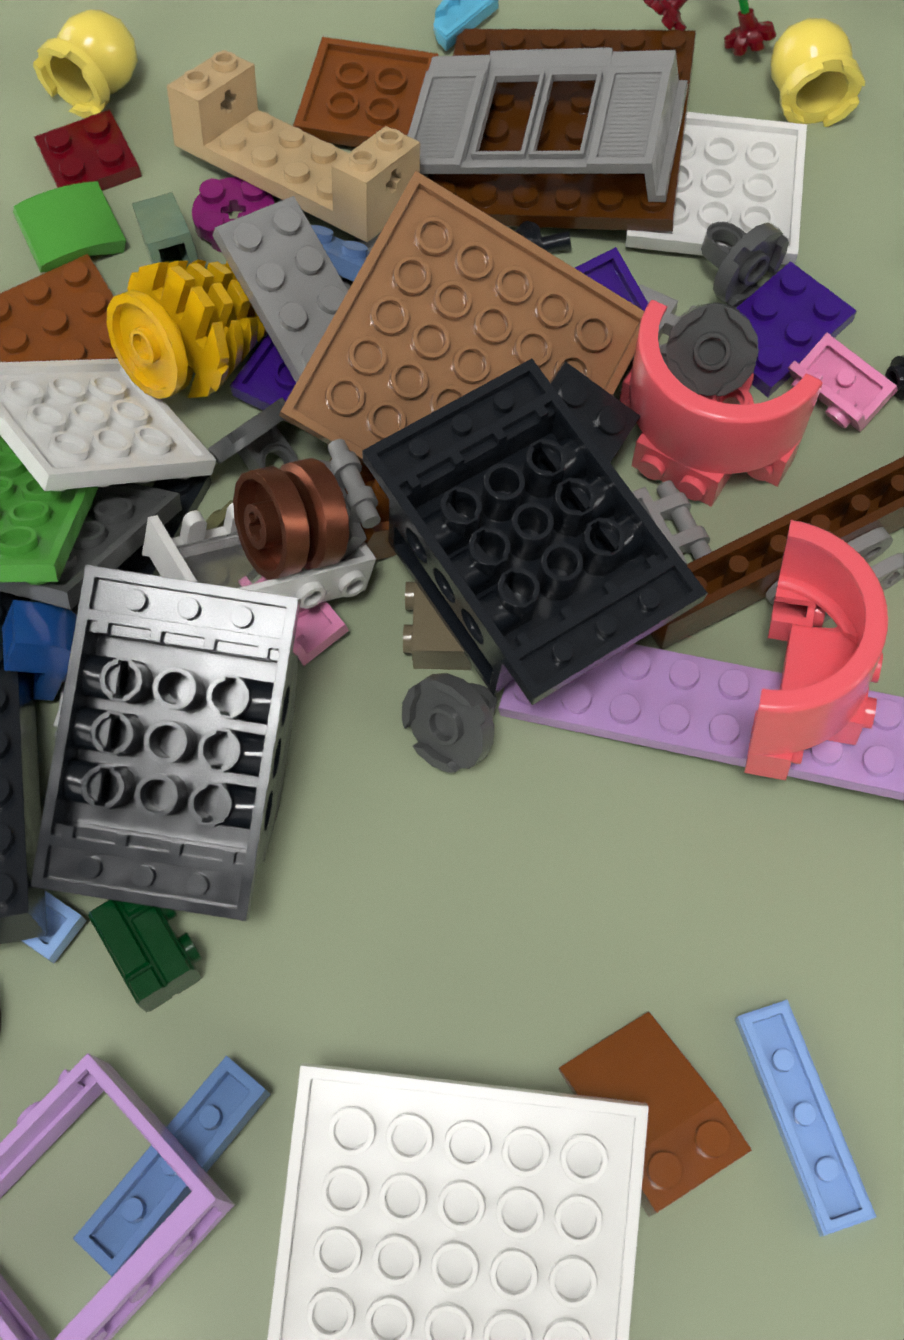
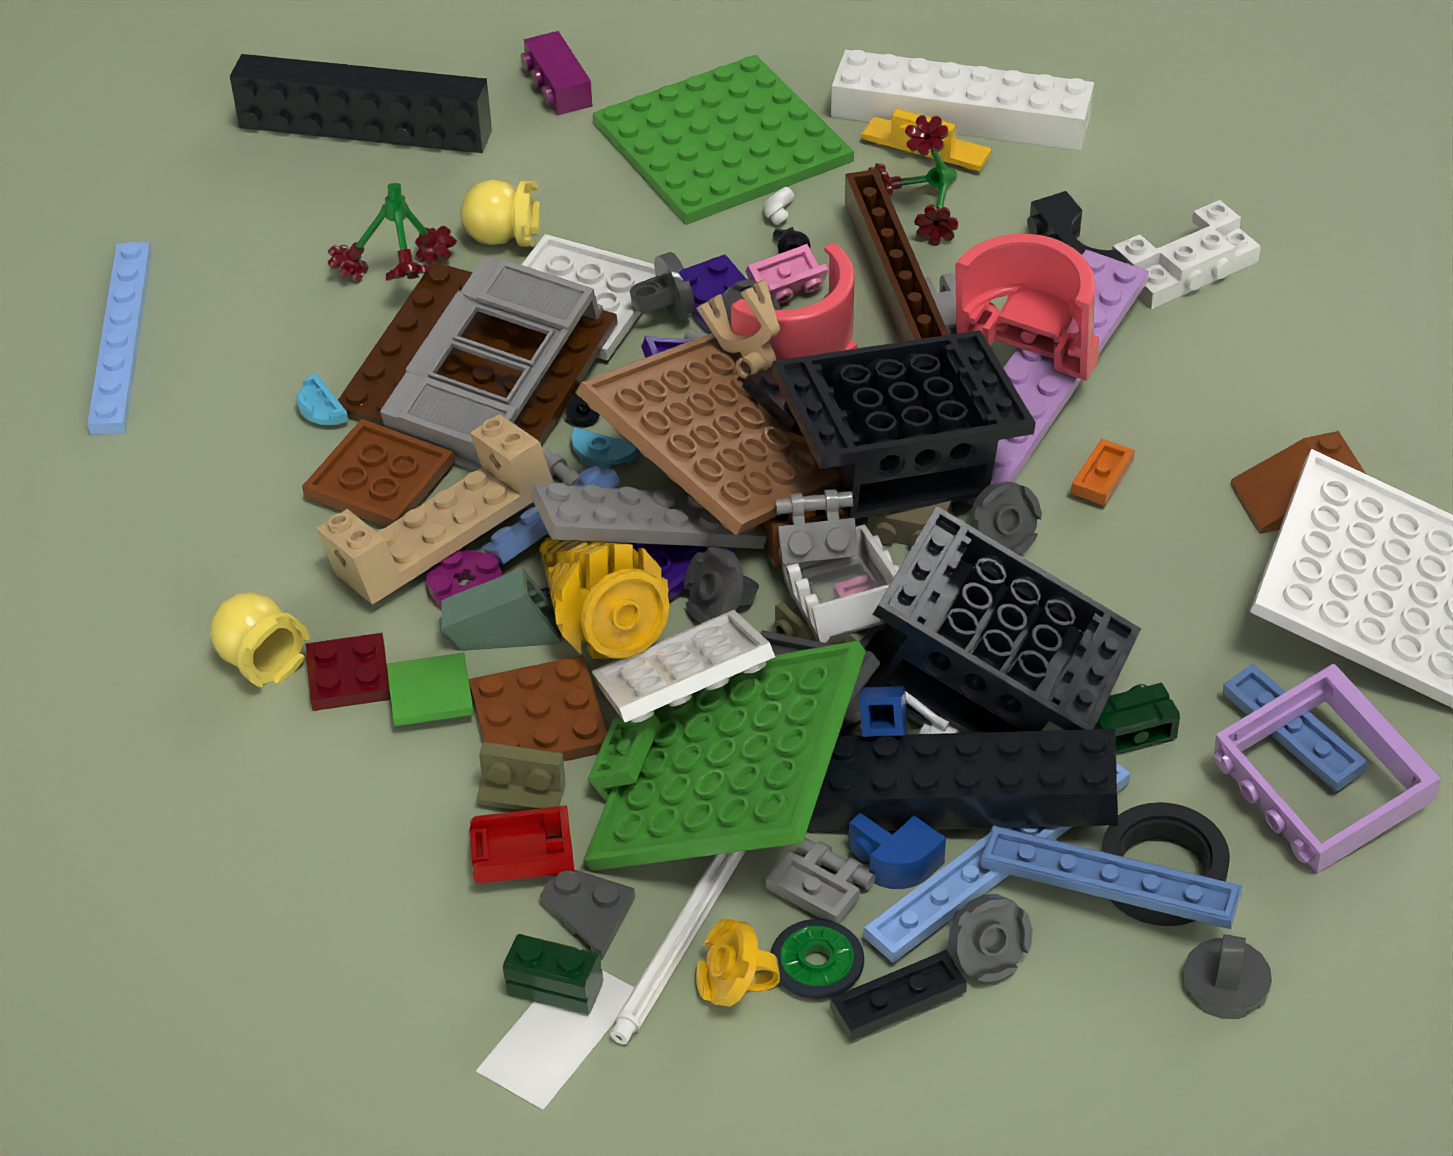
camera: 75 degrees left, 20 degrees down
(291, 518) = (840, 534): copper wheel -> none
(599, 833) = (1102, 472): none -> orange plate
(632, 331) = (754, 348): none -> tan piece
(804, 1118) = (1295, 424): light blue tile -> none

